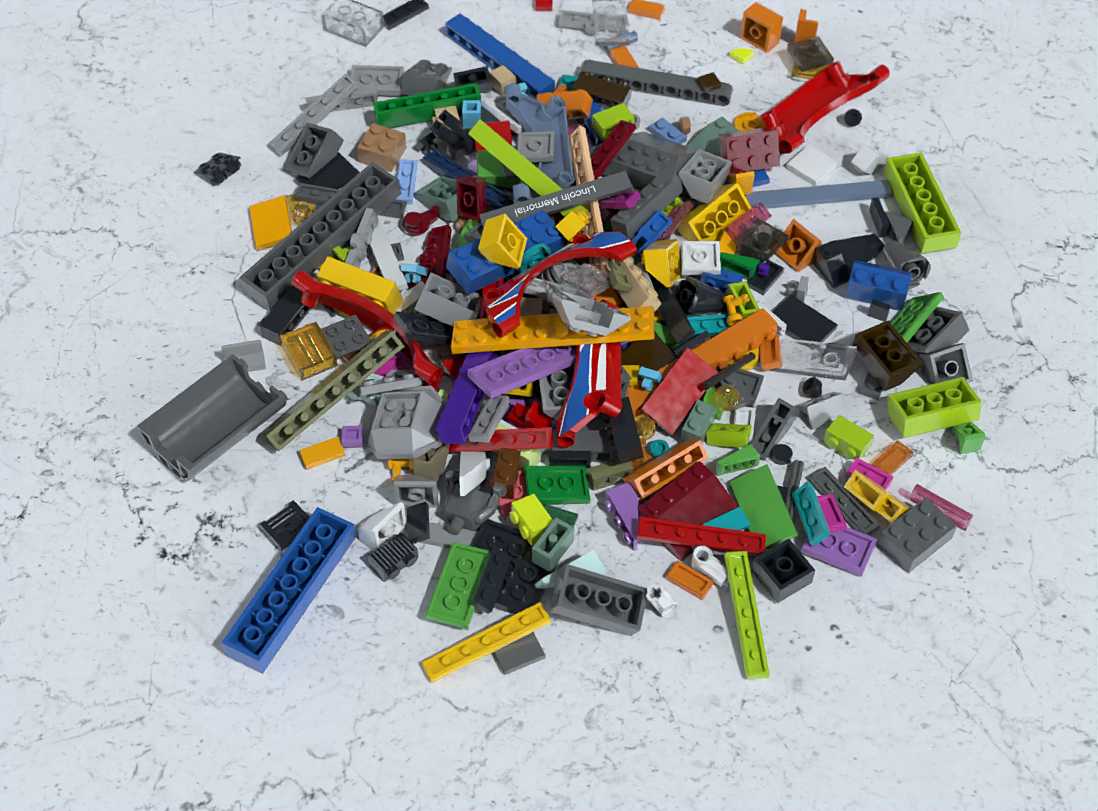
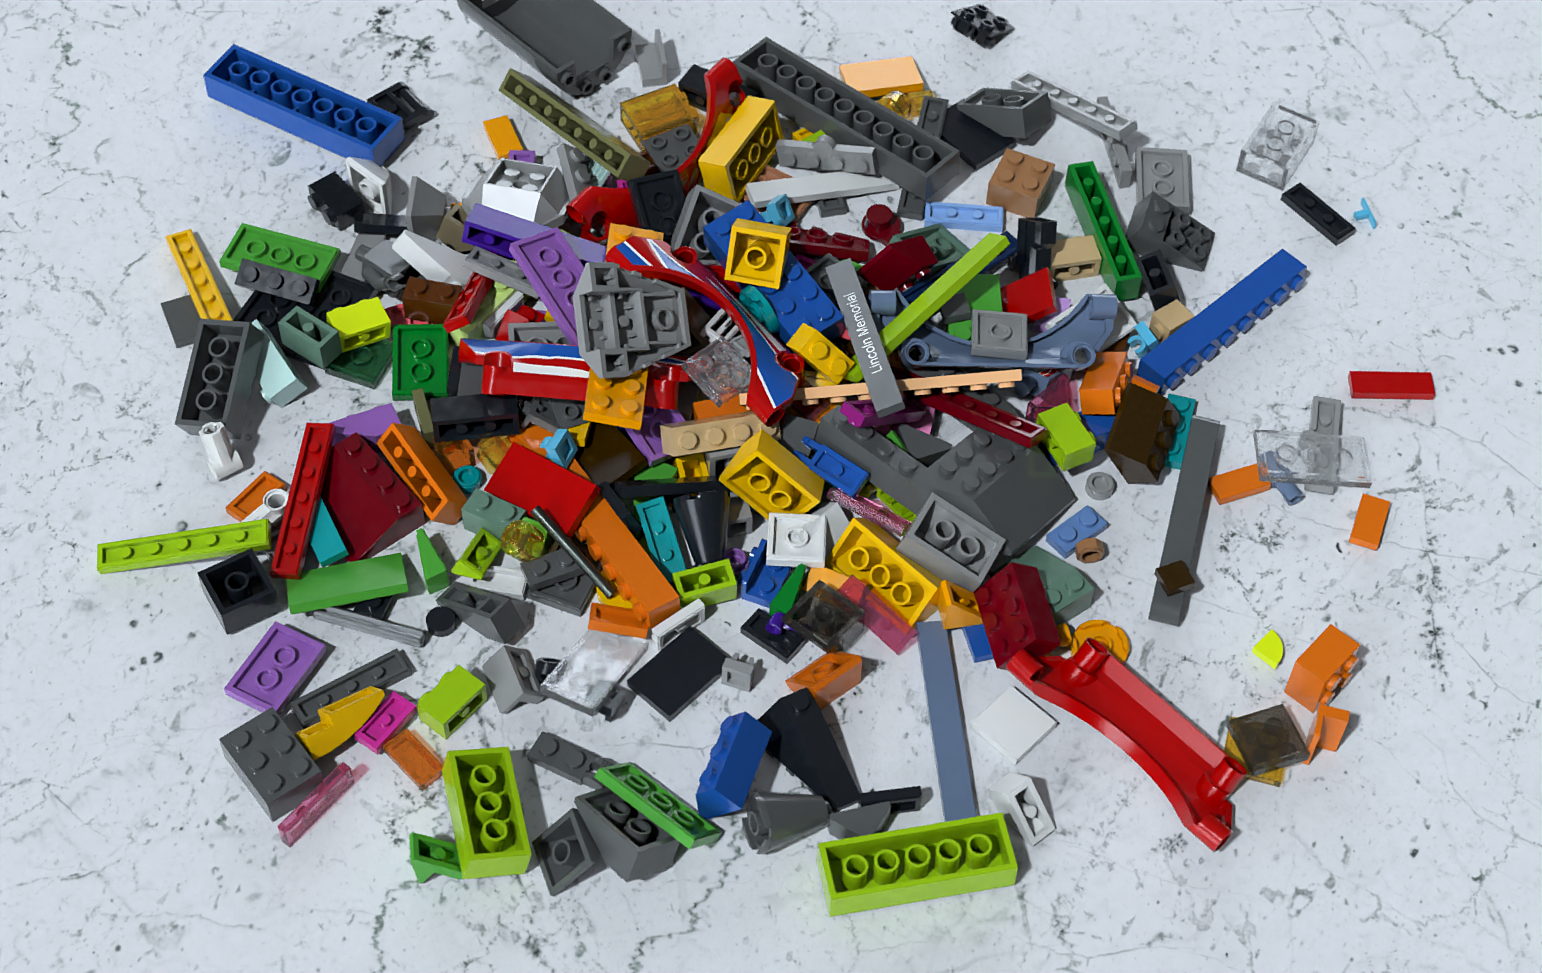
camera: 90 degrees right, 0 degrees up
(471, 112) = (1088, 277): medium azure brick -> none
(619, 279) = (715, 403): olive plate -> none
(731, 303) = (688, 560): light orange piece -> none
(811, 513) = (318, 629): teal plate -> none
(832, 513) = (322, 656): dark pink tile -> none
(853, 117) = (1123, 795): black tile -> none
(879, 310) = (690, 776): black tile -> none
(886, 355) = (577, 745): dark brown slope -> none

